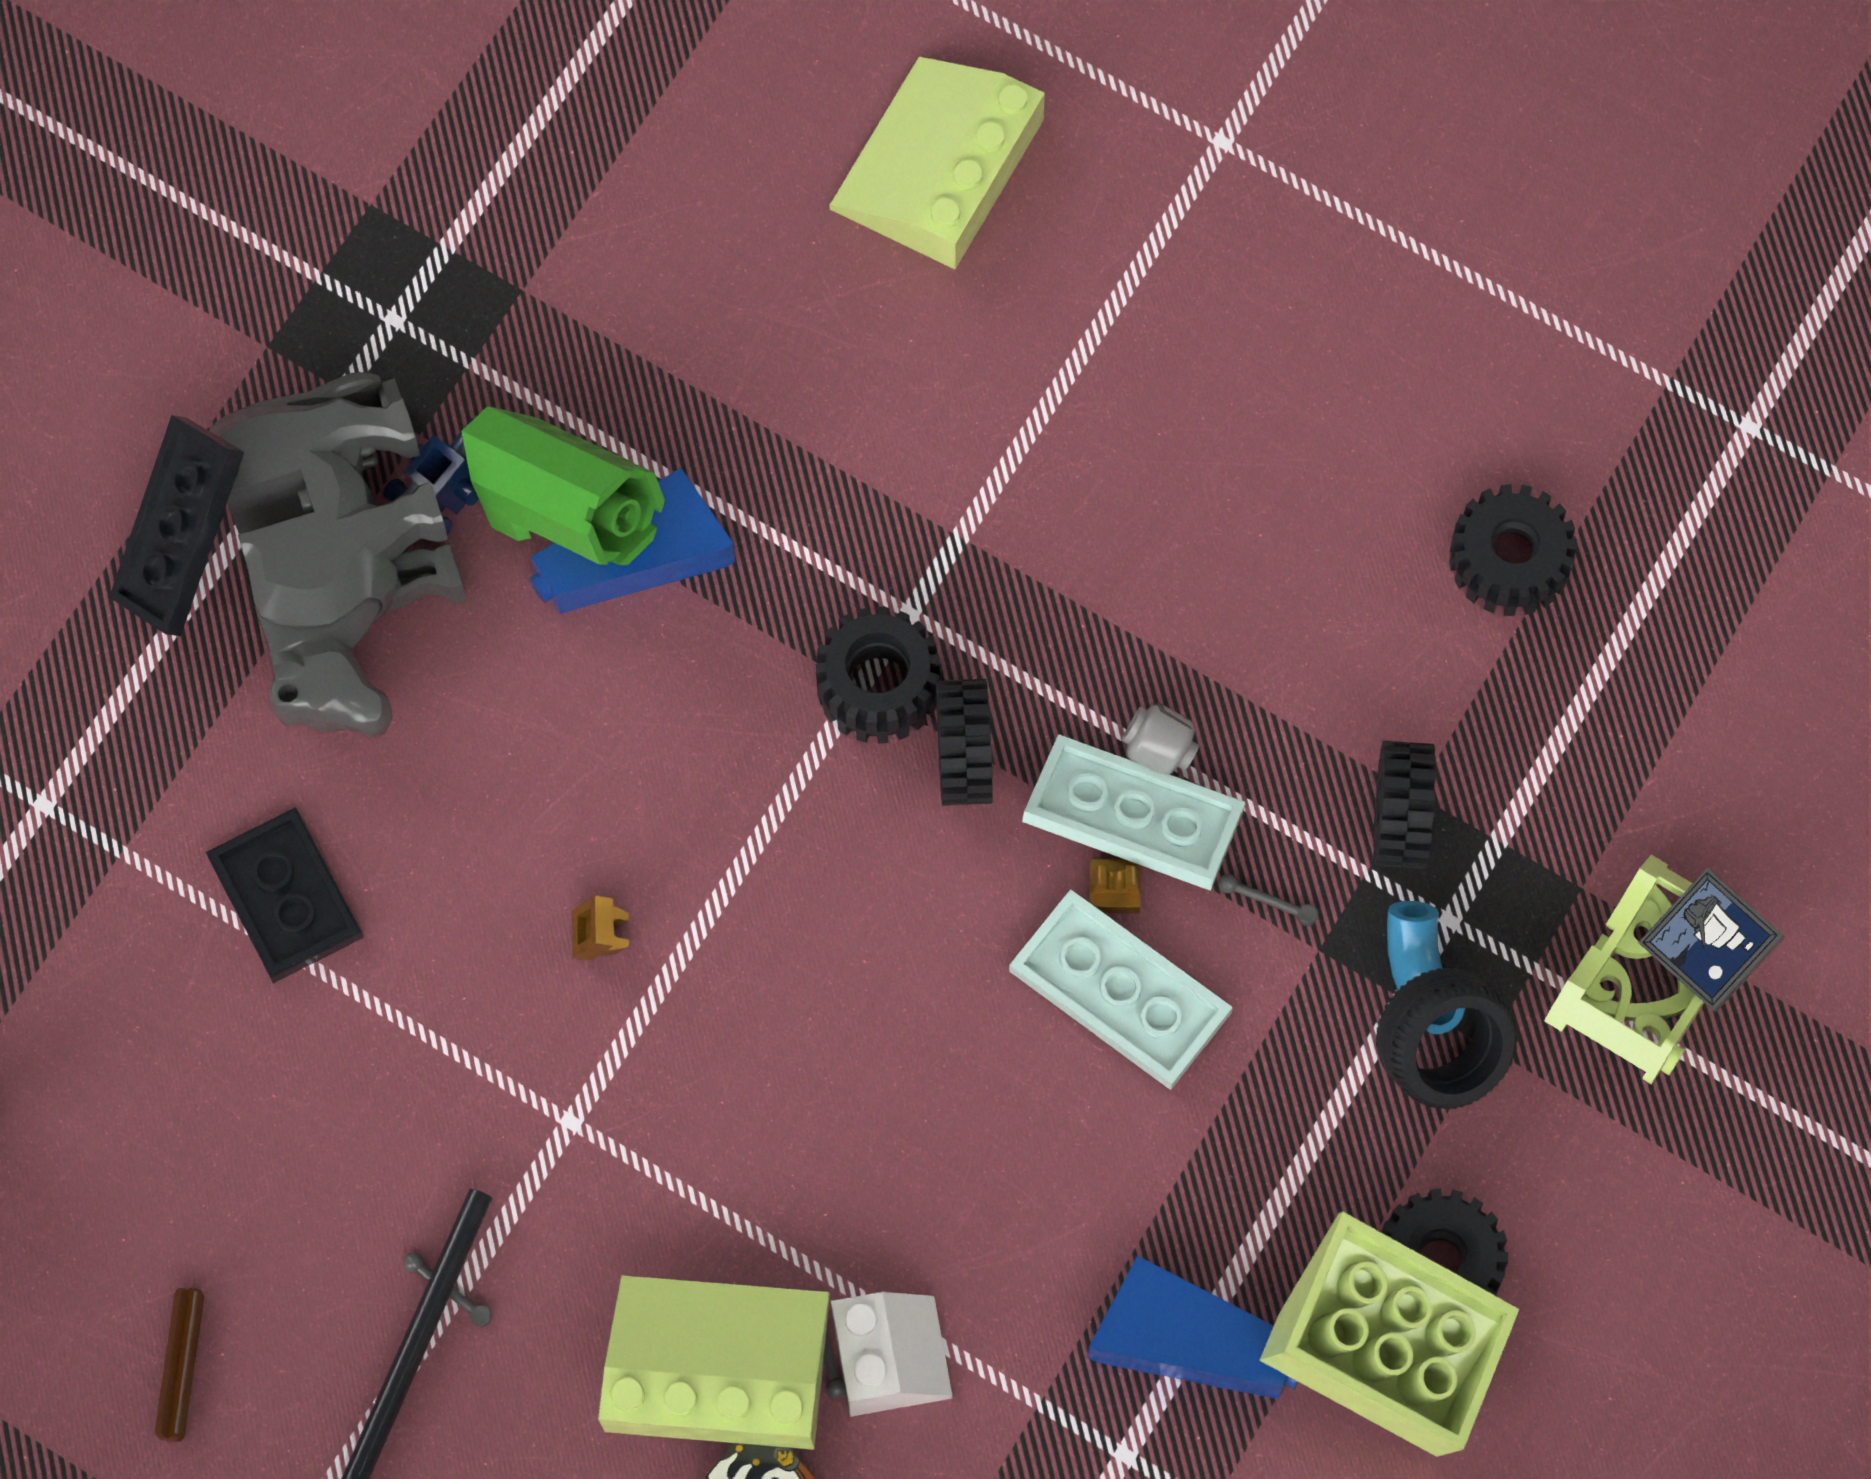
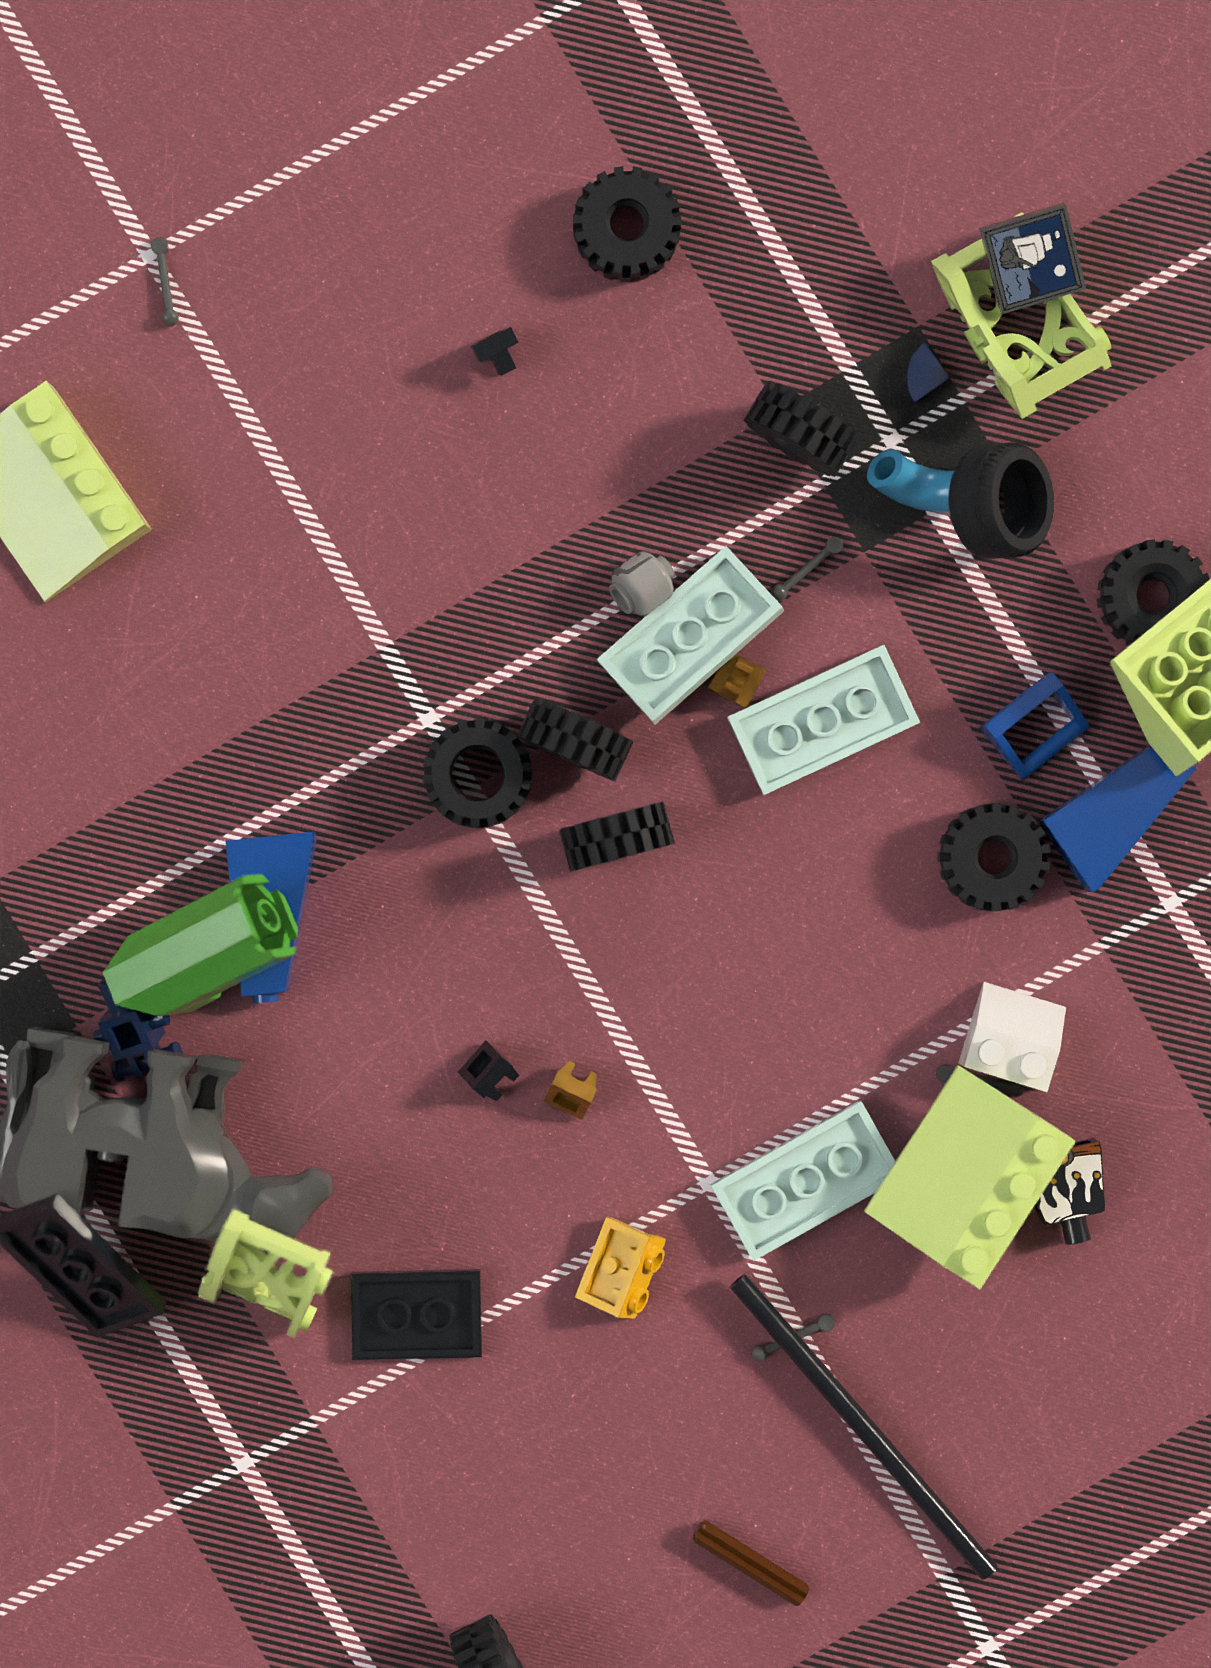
camera: 65 degrees left, 20 degrees up
(242, 673) = (248, 1273): none -> yellowish green fence
(434, 1072) = (621, 1269): none -> yellow bracket
(576, 833) = (486, 1069): none -> black tile
(622, 1209) = (805, 1180): none -> light aqua plate
(886, 830) = (616, 836): none -> black tyre
(1071, 1270) = (961, 865): none -> black tyre
(1235, 146) = (160, 248): none -> dark grey hinge
(1246, 1182) = (1022, 705): none -> blue tile
(1316, 488) = (496, 348): none -> black tile
(1533, 913) = (923, 374): none -> dark blue tile

